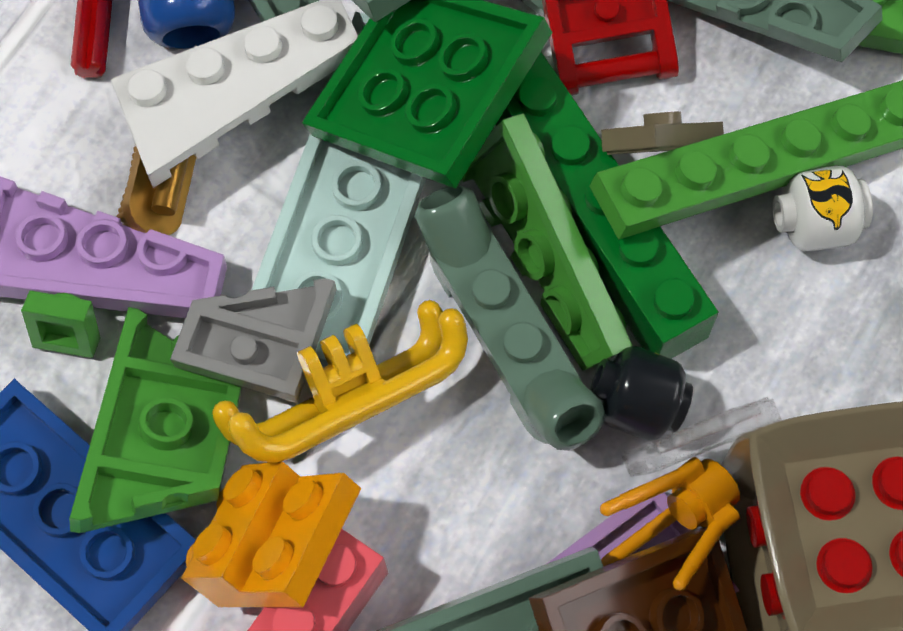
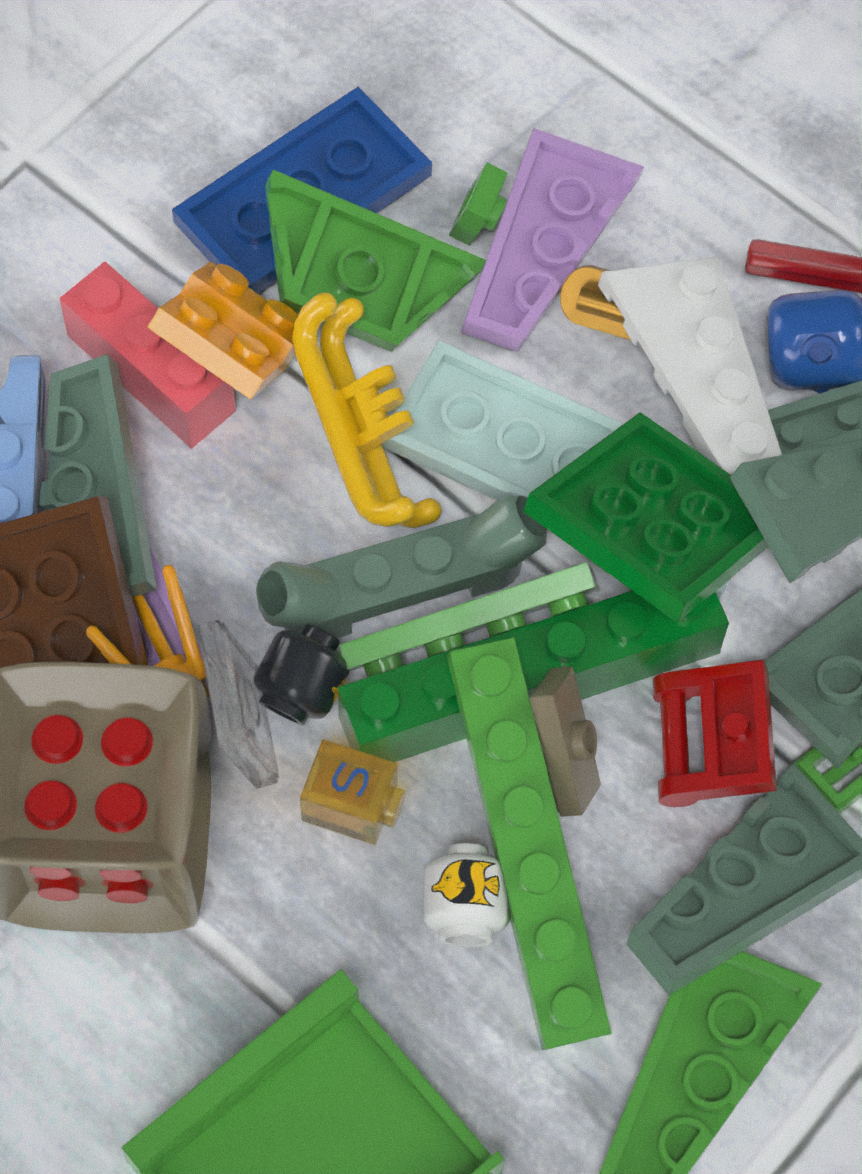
camera: 95 degrees right, 5 degrees down
(255, 337) = (426, 347): light grey wing -> none
(747, 329) = (351, 793): none -> clear yellow brick

